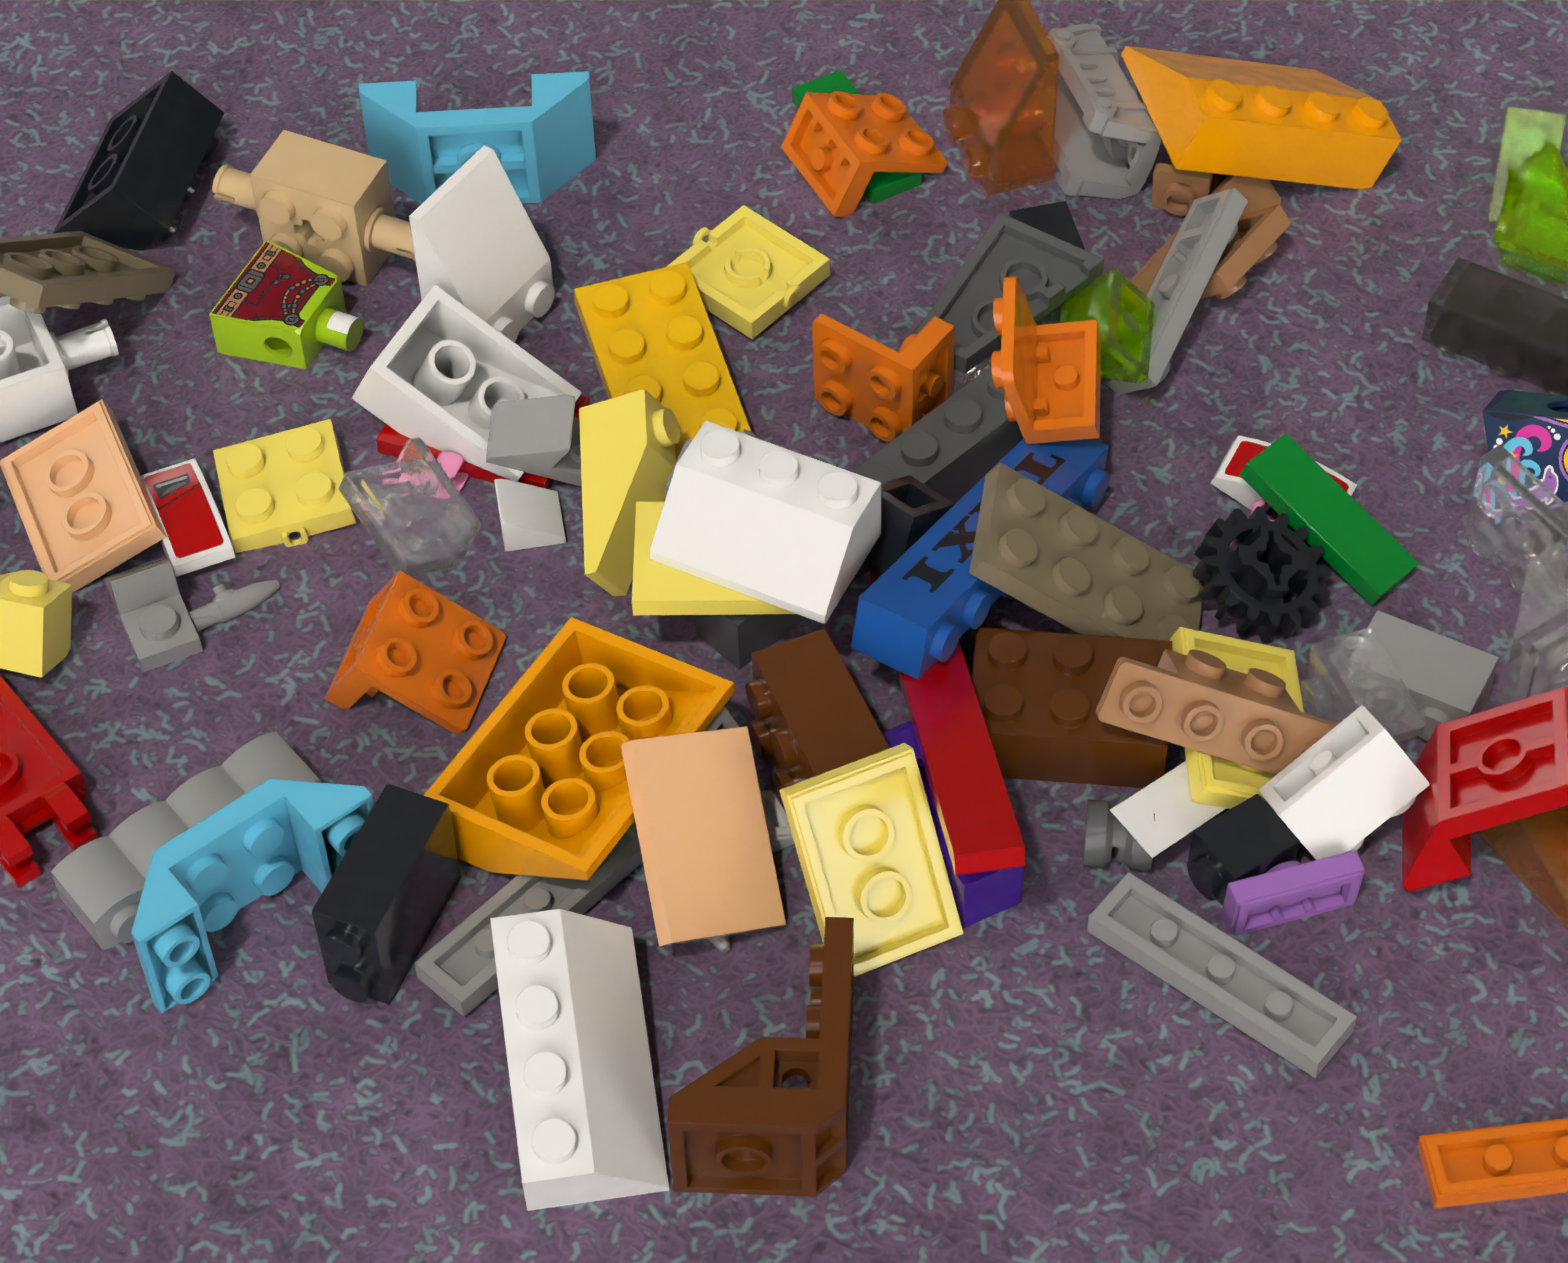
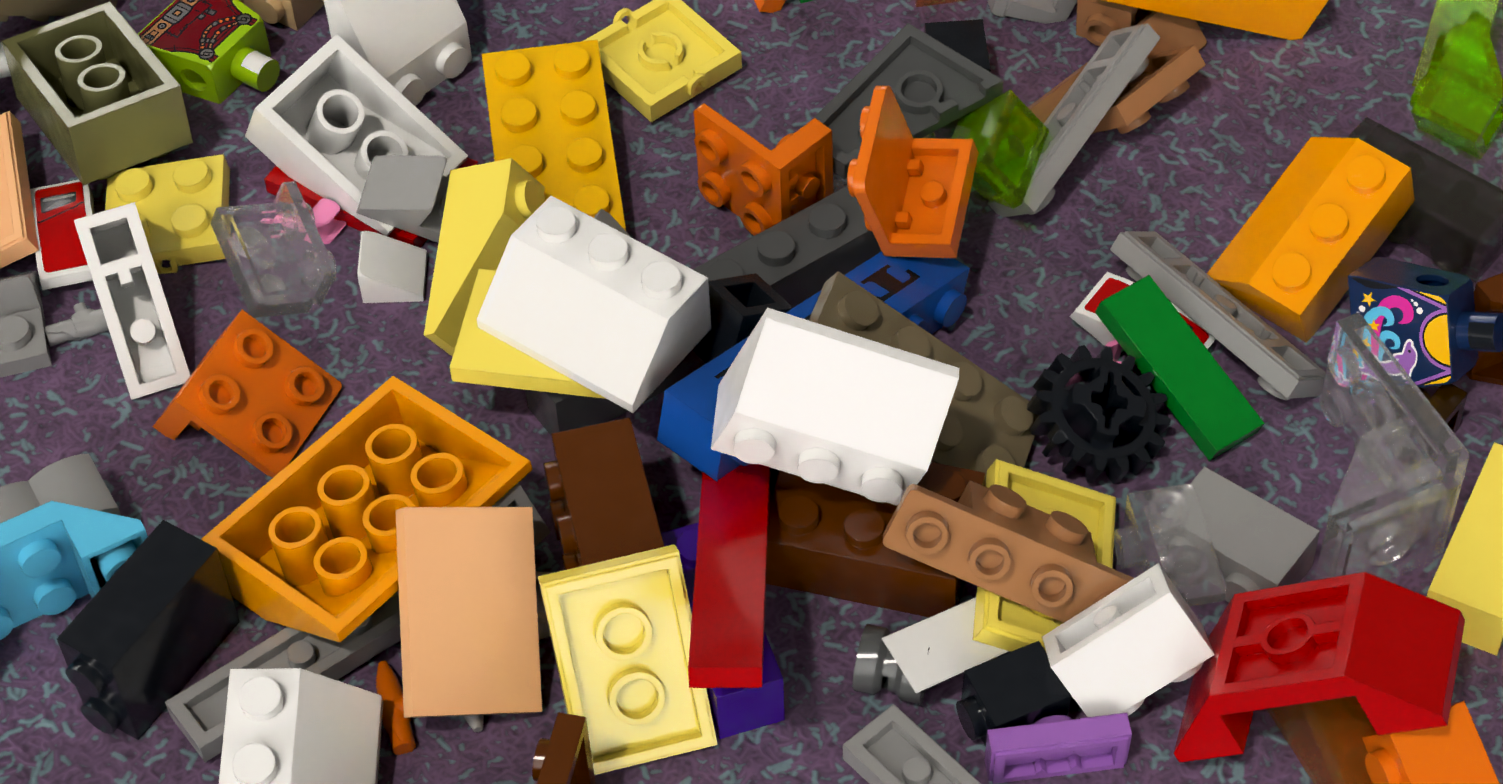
camera: 10 degrees right, 0 degrees up
(189, 370) = (97, 92): none -> olive brick
(278, 574) = (132, 300): none -> white slope
(644, 942) = (393, 718): none -> orange helmet
(1030, 593) = (832, 407): none -> white slope
(1423, 507) = (1280, 365): none -> light grey plate
(1430, 373) = (1314, 231): none -> light orange slope

